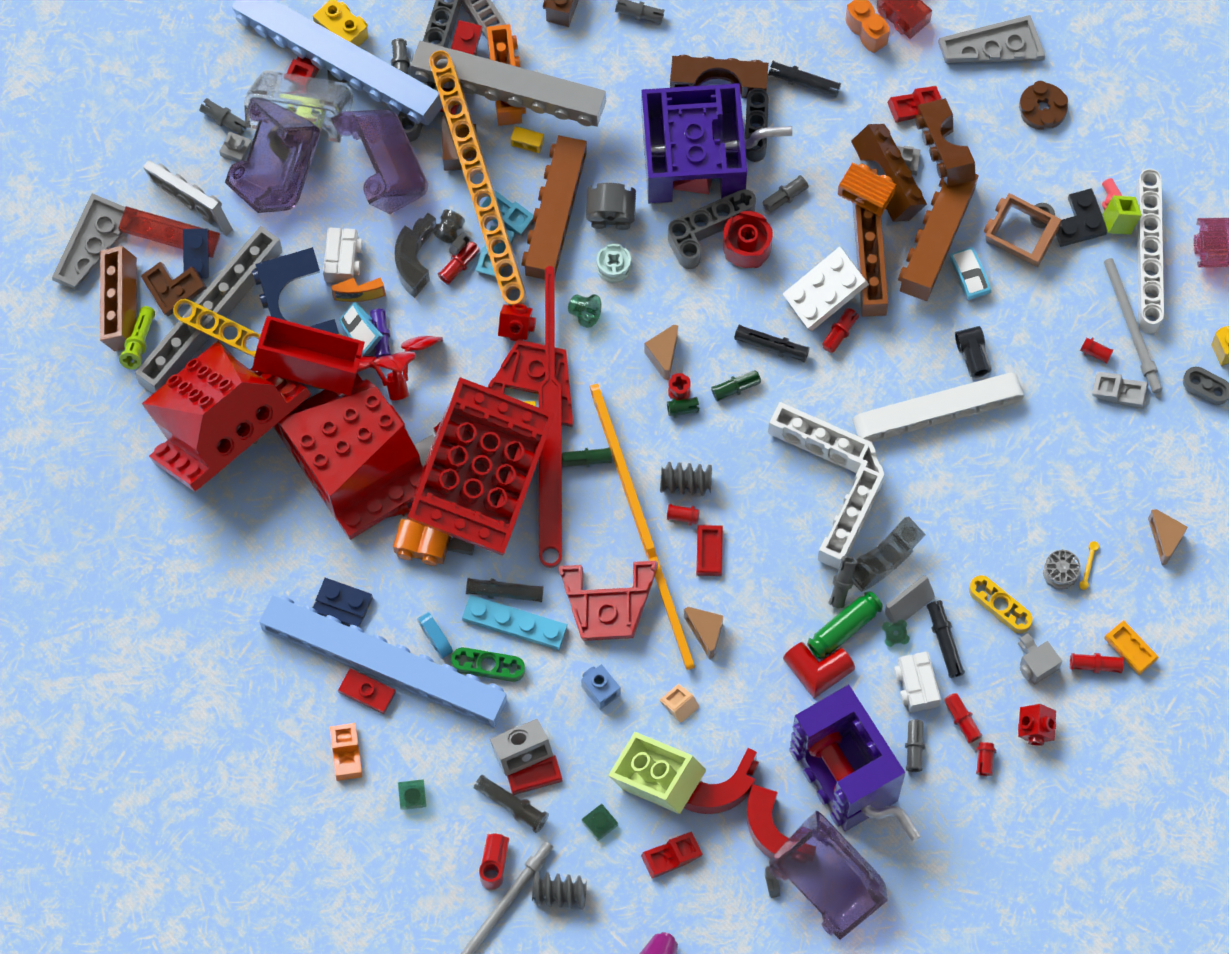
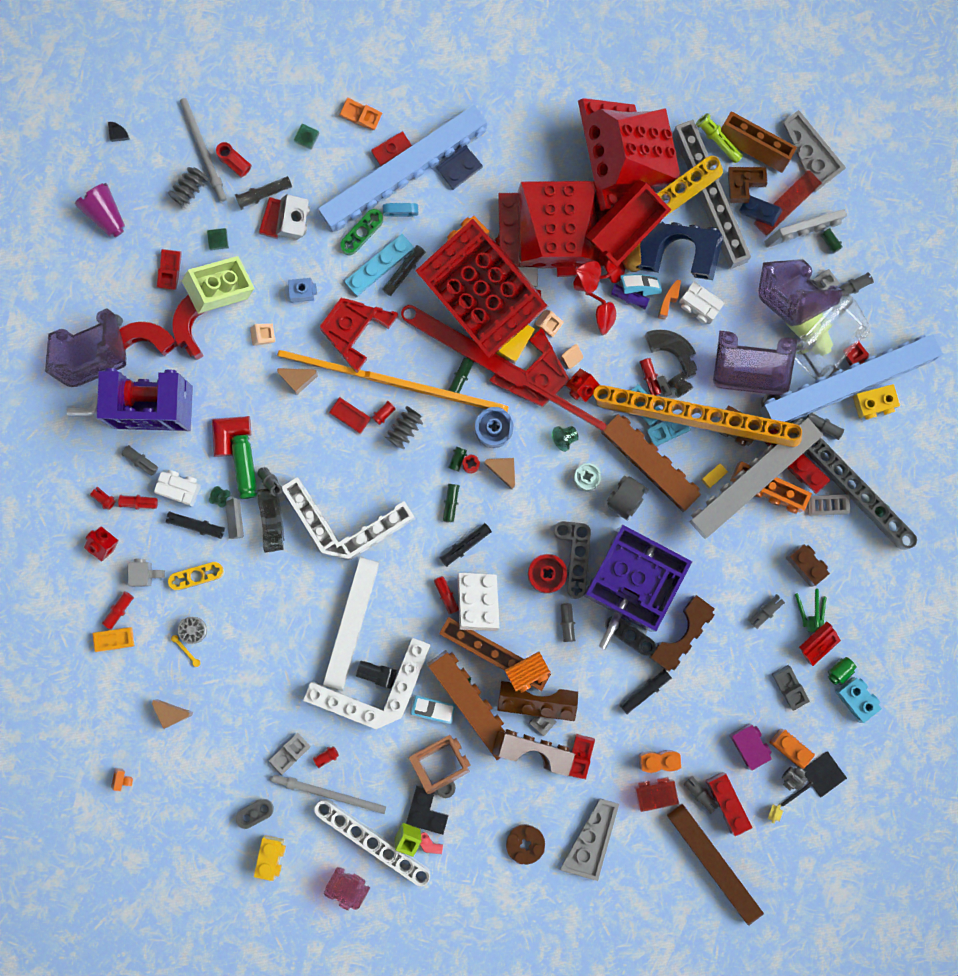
camera: 120 degrees right, 15 degrees up
(186, 163) = (831, 240): none -> dark green pin
(488, 356) = (572, 356): none -> light nougat slope
(636, 384) = (486, 419): none -> medium blue brick
(992, 310) = (372, 715): none -> white brick

